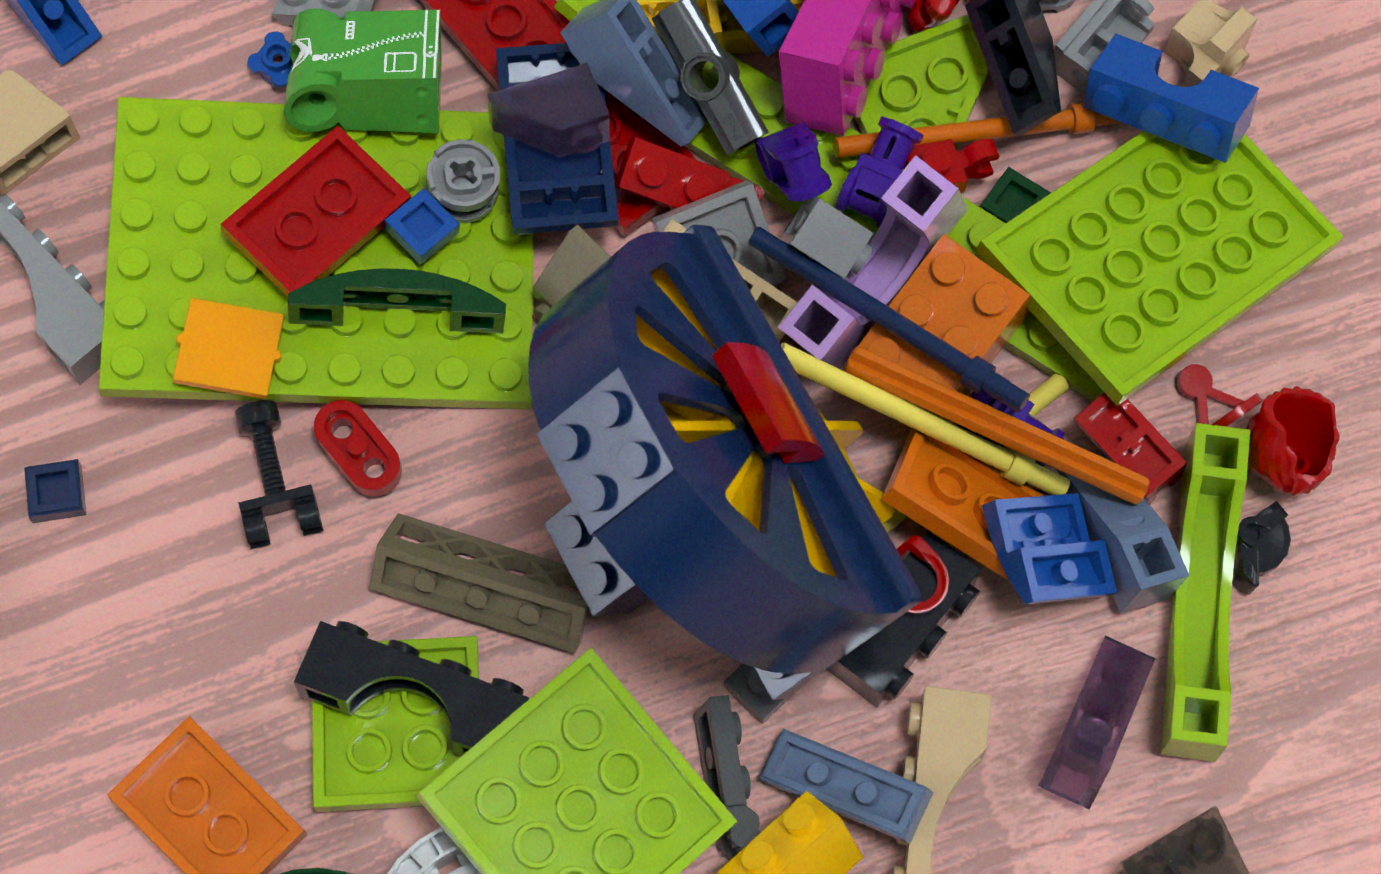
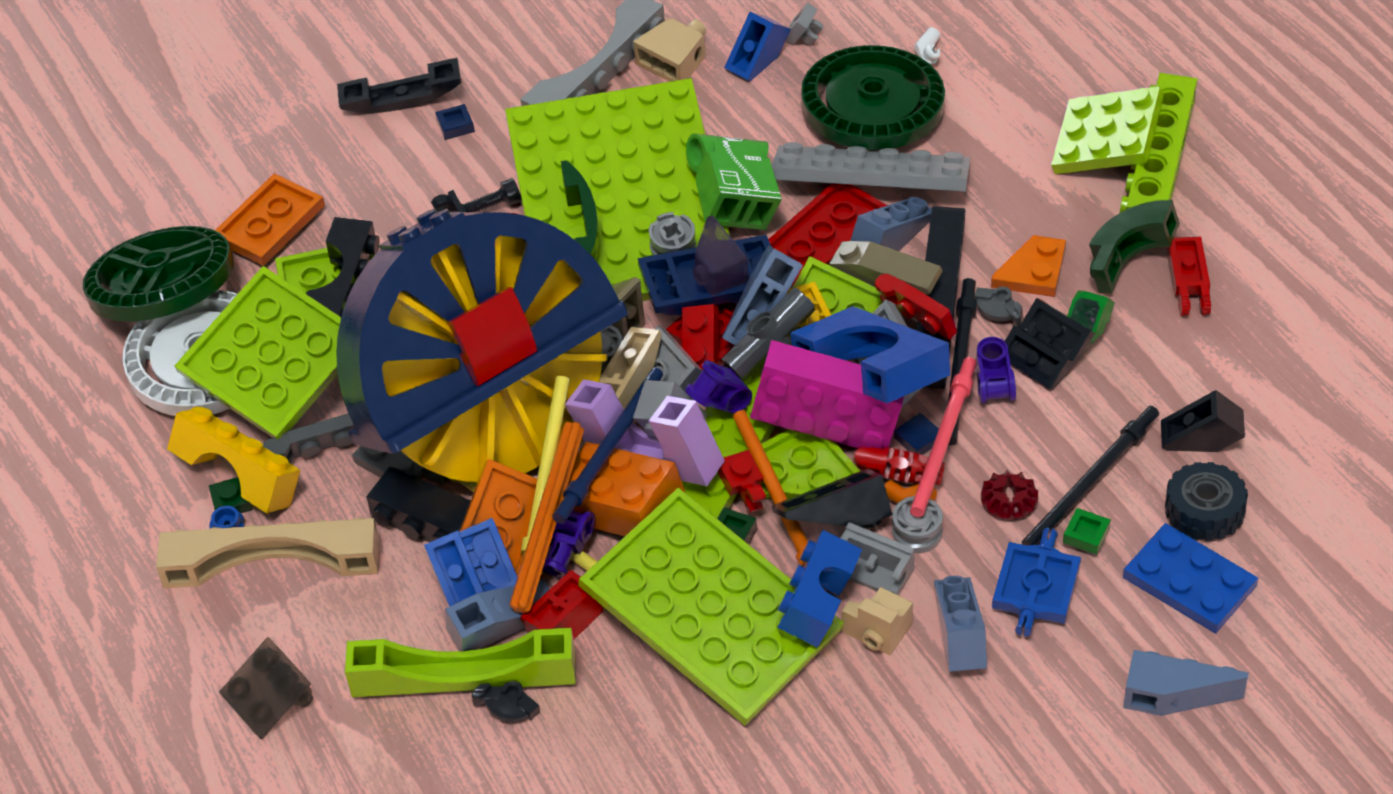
camera: 85 degrees right, 20 degrees down
(228, 348) = (538, 155): light orange piece -> none
(315, 213) = (632, 173): red plate -> none
(422, 226) = (635, 224): blue plate -> none
(847, 785) = (308, 494): sand blue tile -> none
(875, 172) = (733, 435): dark purple connector -> none
(923, 551) = (430, 486): red piece -> none
(1097, 723) = (354, 616): clear purple slope -> none
(1196, 384) = (622, 655): red piece -> none
(1293, 440) = (575, 695): red hair -> none

